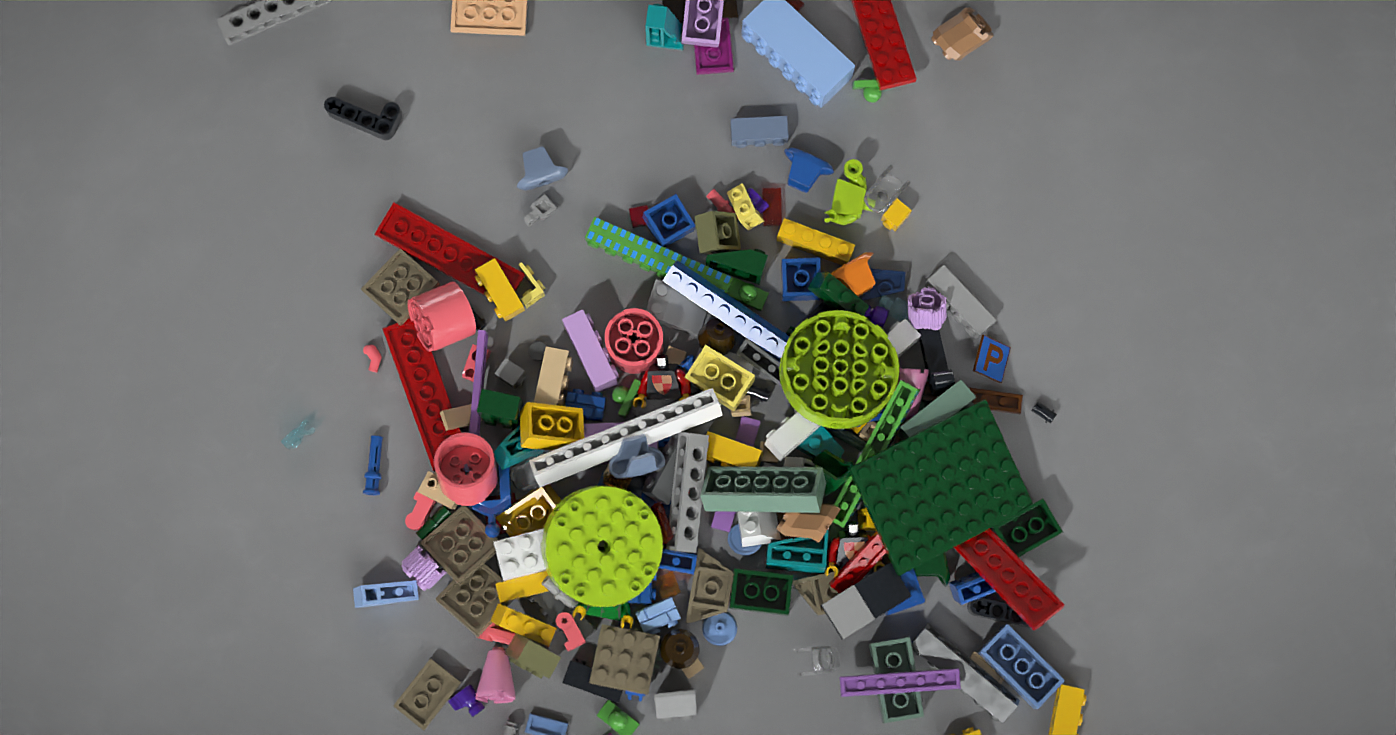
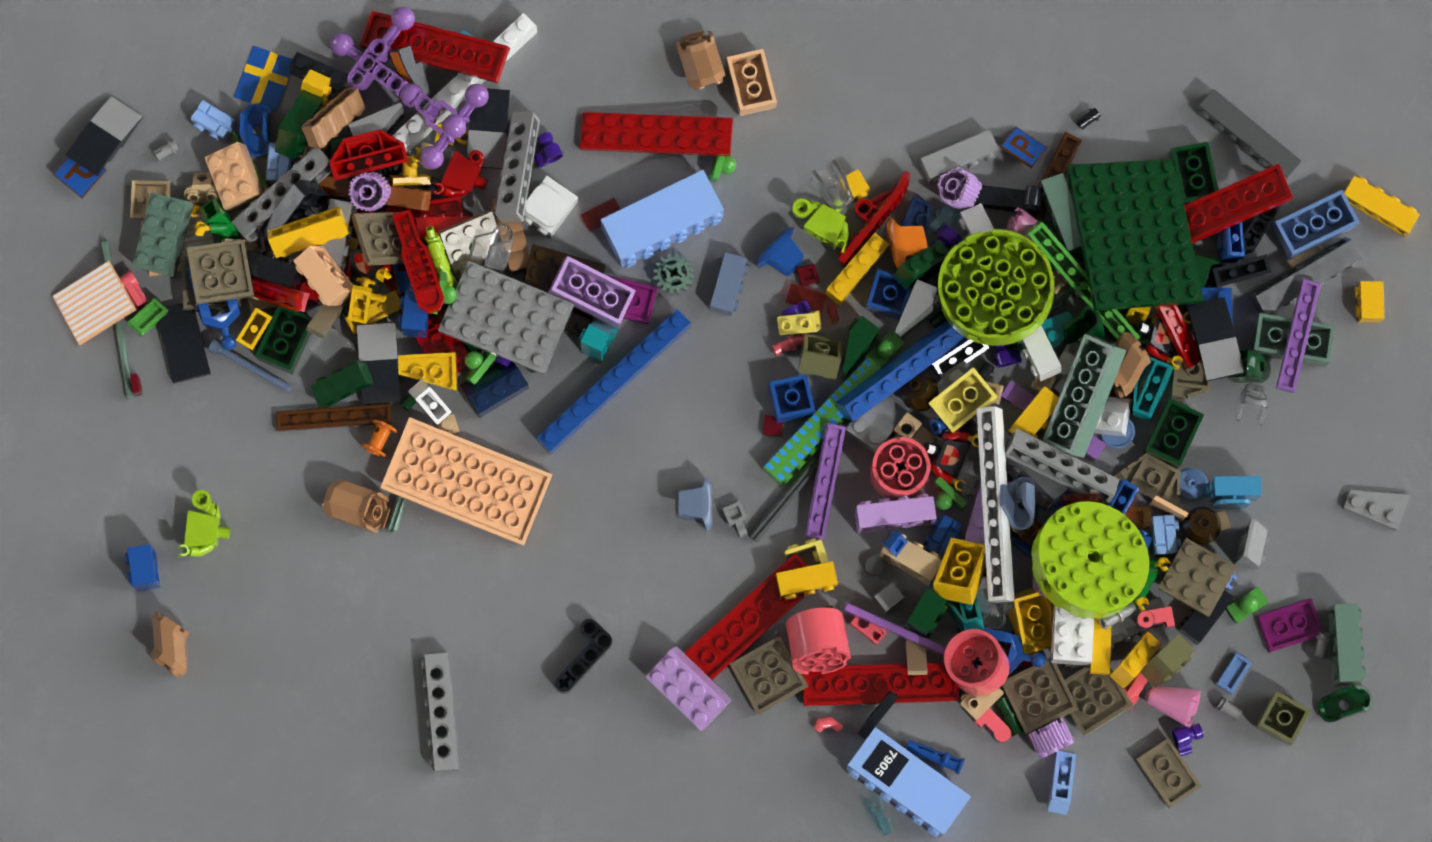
camera: 75 degrees left, 0 degrees up
(336, 446) = (907, 783): none -> light blue brick
(363, 217) = (688, 688): none -> lavender brick
(394, 398) = (877, 714): none -> black beam
(556, 355) = (895, 543): none -> blue tile
(578, 251) = (785, 499): none -> dark grey axle
(601, 278) = (825, 481): none -> medium lavender tile
(630, 59) = (613, 382): none -> blue brick
(681, 345) = (907, 420): none -> tan brick
(684, 610) = (1168, 508): none -> light nougat piece
(723, 668) = (1233, 491): none -> dark azure brick
(758, 80) = (680, 278): none -> sand green gear
(765, 234) = (833, 313): none -> clear red tile
(780, 408) = (1005, 357): none -> dark purple piece
(793, 305) = (919, 306): none -> light grey slope
(794, 201) = (807, 275): none -> dark red tile
(854, 646) = (1253, 373): none -> dark green piece
(880, 243) = (879, 210): none -> red piece
(945, 606) = (1239, 271): none -> black brick
(958, 87) = (751, 82): none -> light nougat brick
(1086, 572) = (1246, 133): none -> dark grey brick

